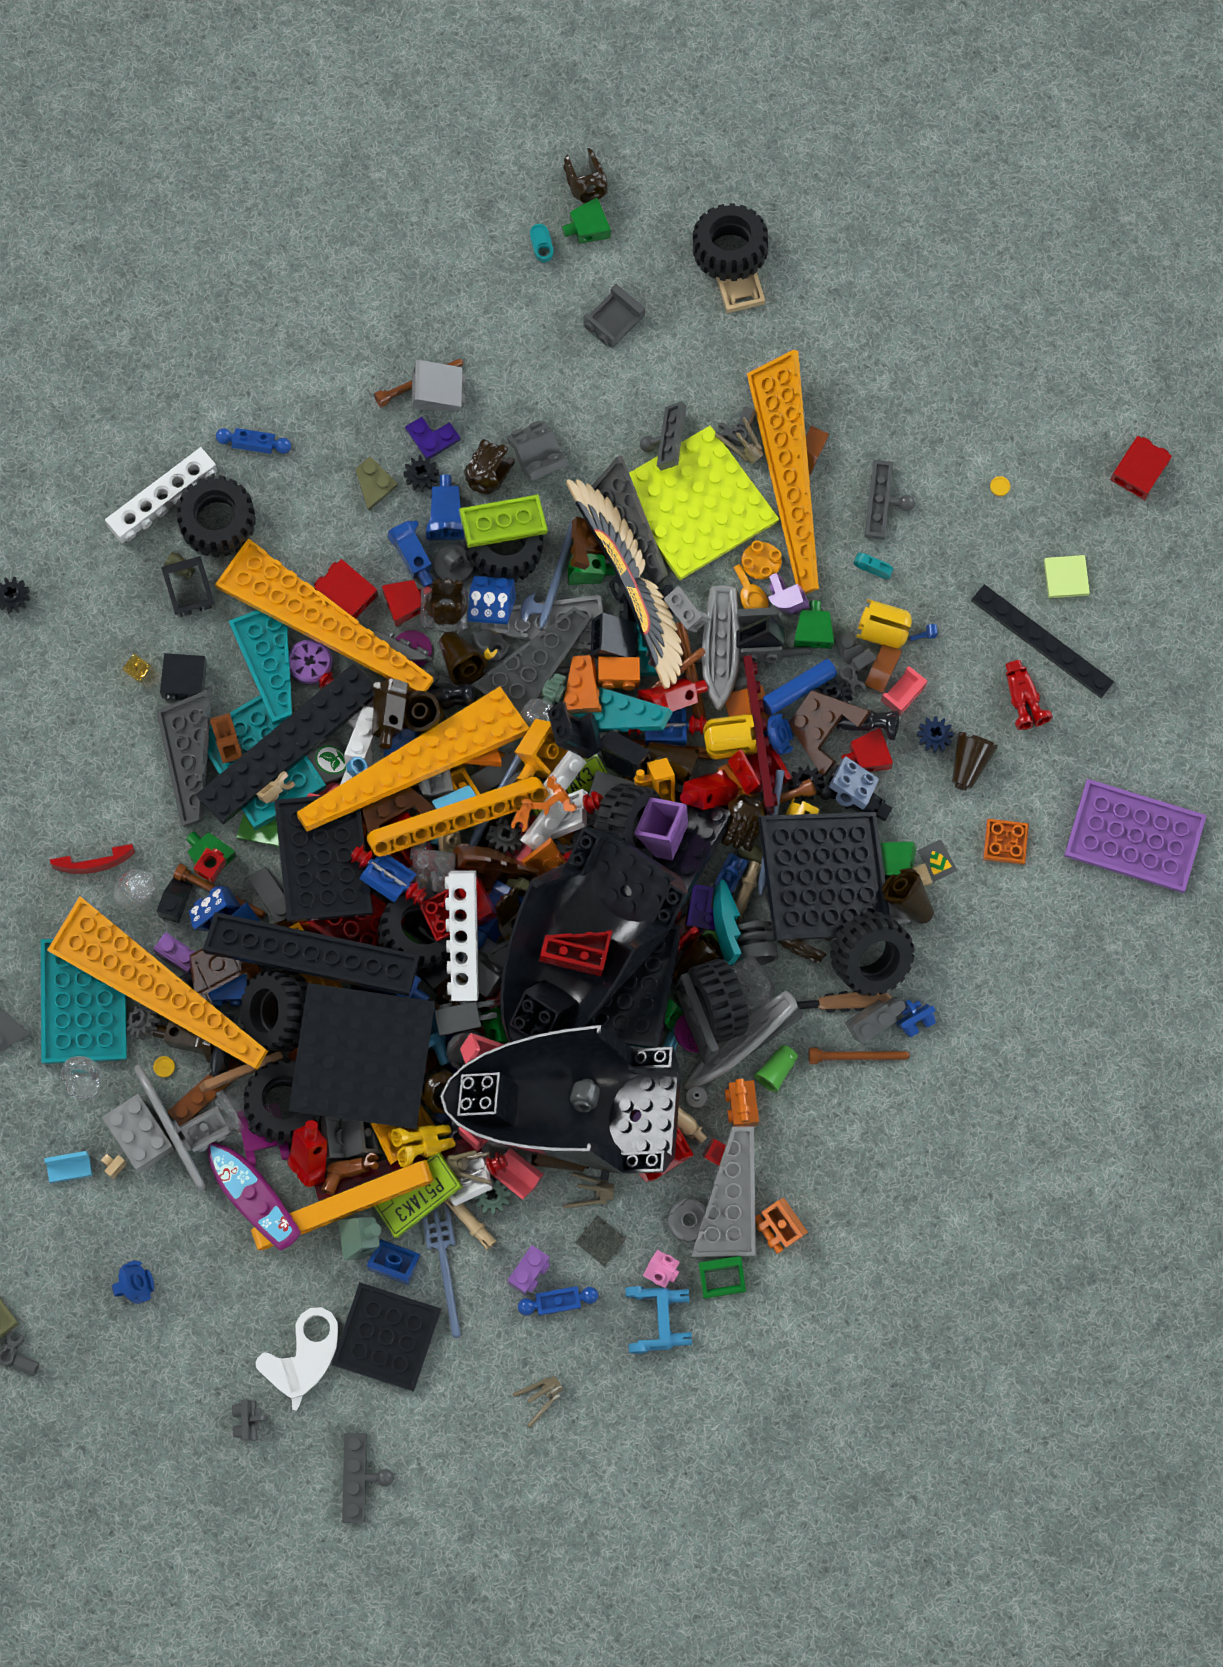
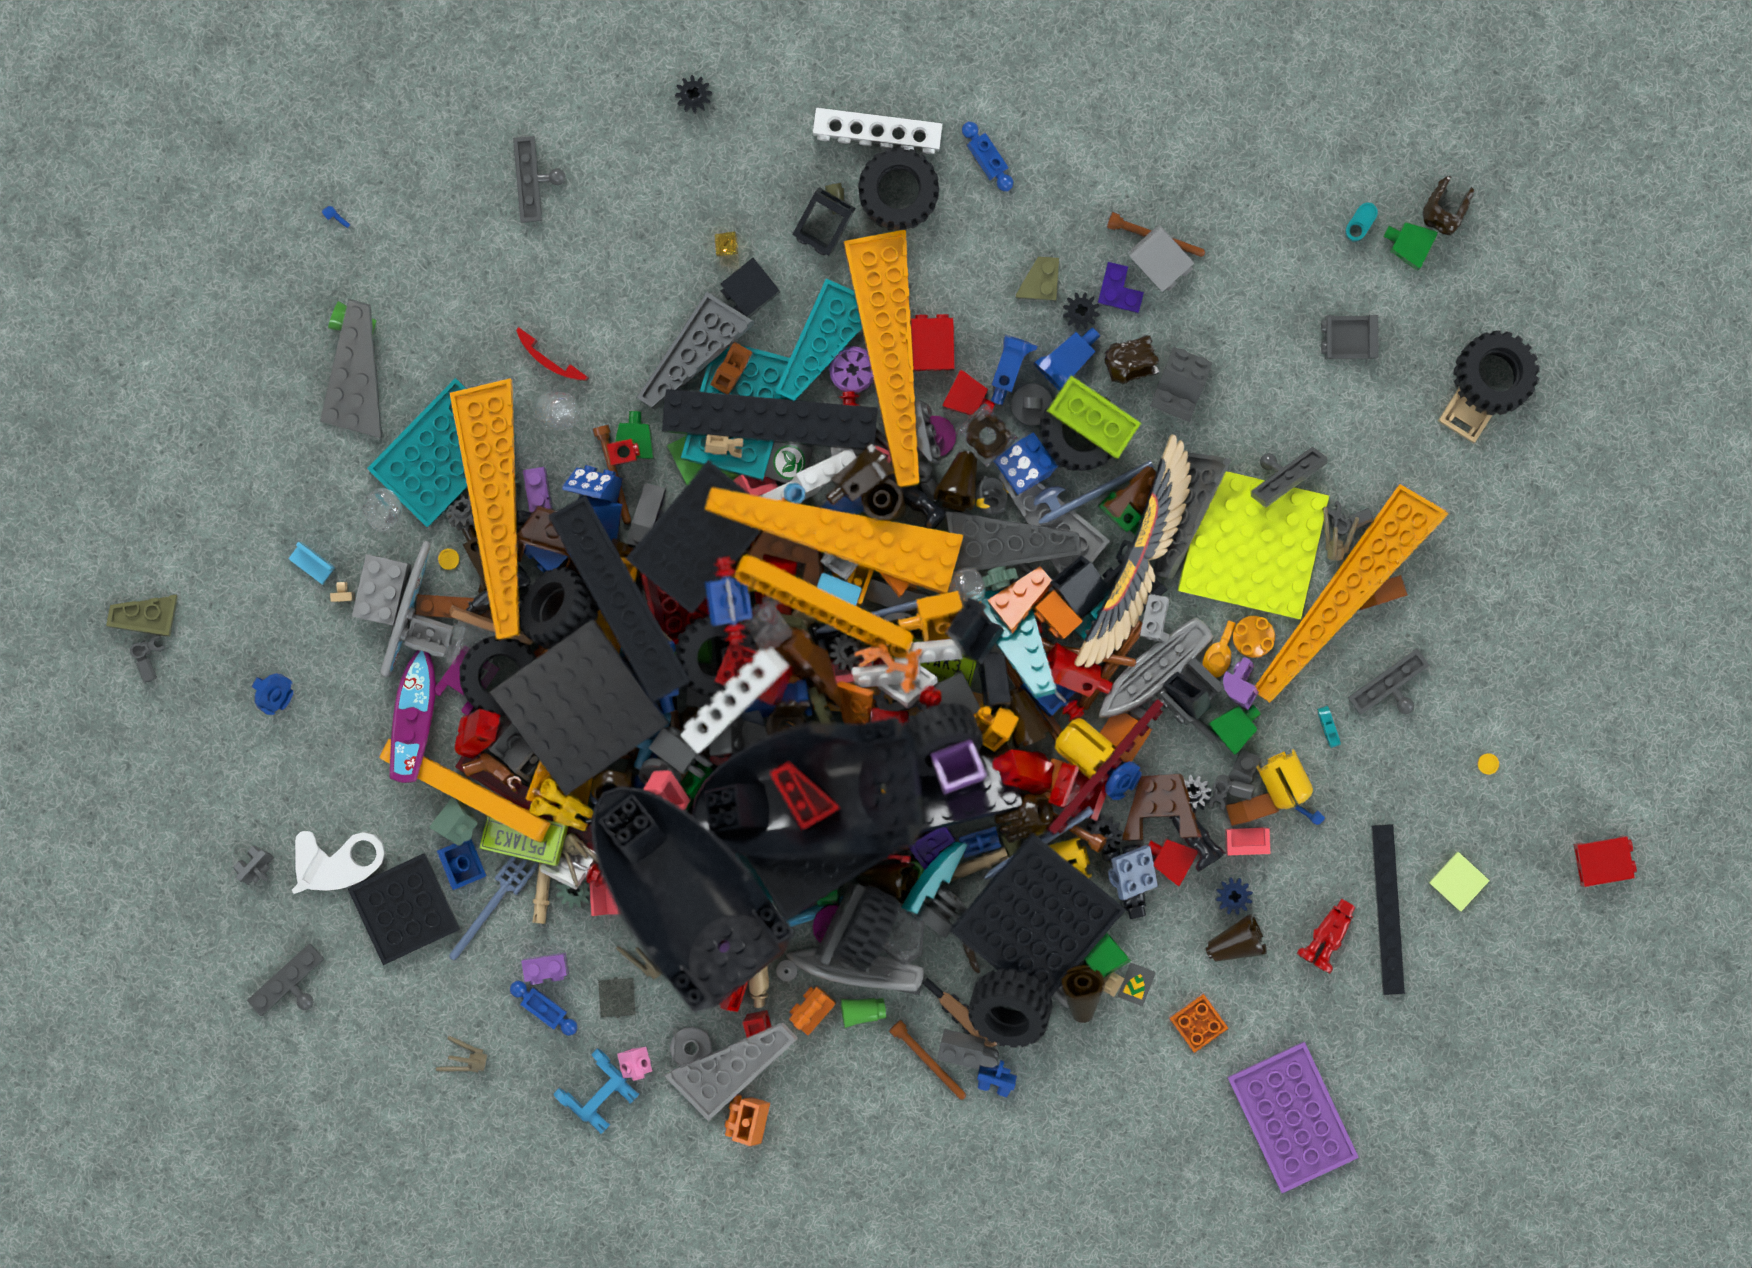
camera: 50 degrees right, 15 degrees up
(174, 900) = (576, 446): black slope -> none
(584, 1095) = (703, 896): dark grey head -> none
(719, 1265) = (676, 1101): green tile -> none
(799, 687) = (1174, 761): blue brick -> none

